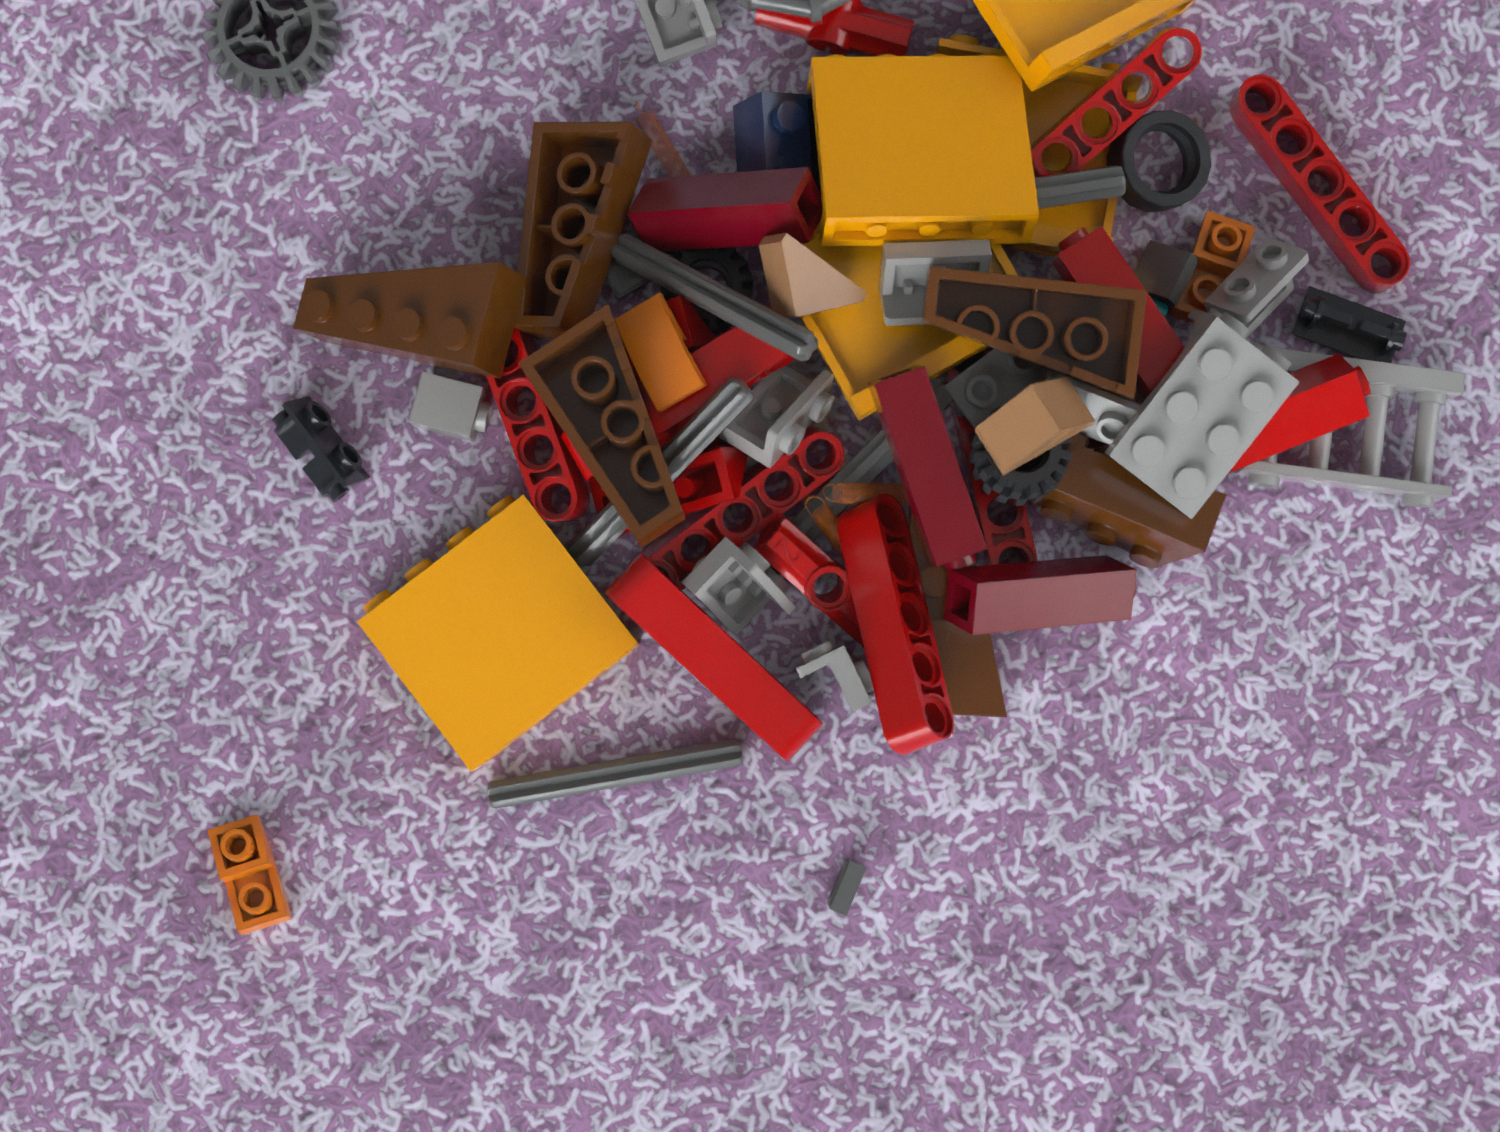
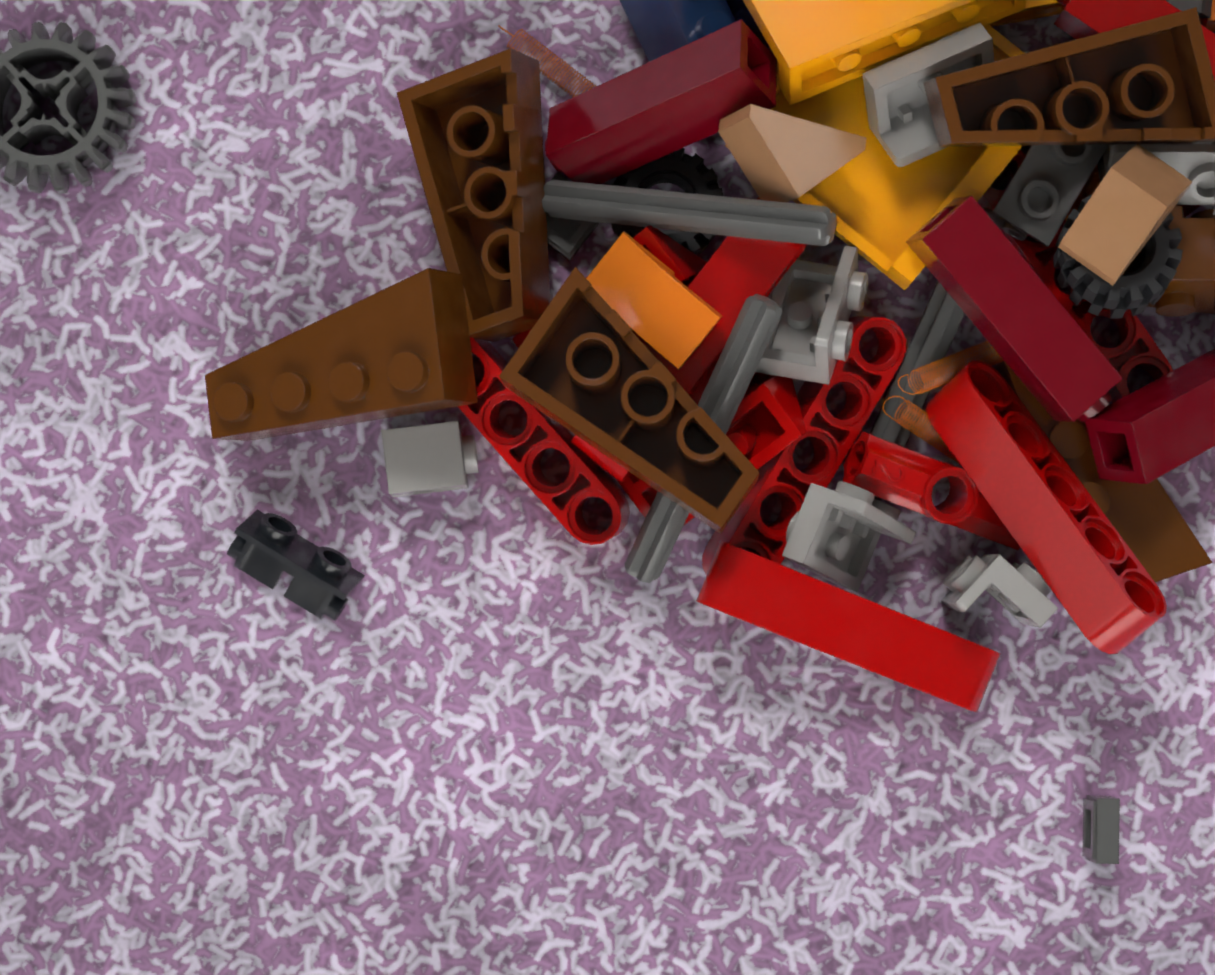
camera: 25 degrees left, 0 degrees up
(496, 631) = (584, 695): light orange panel -> none
(615, 773) = (783, 804): dark grey axle -> none

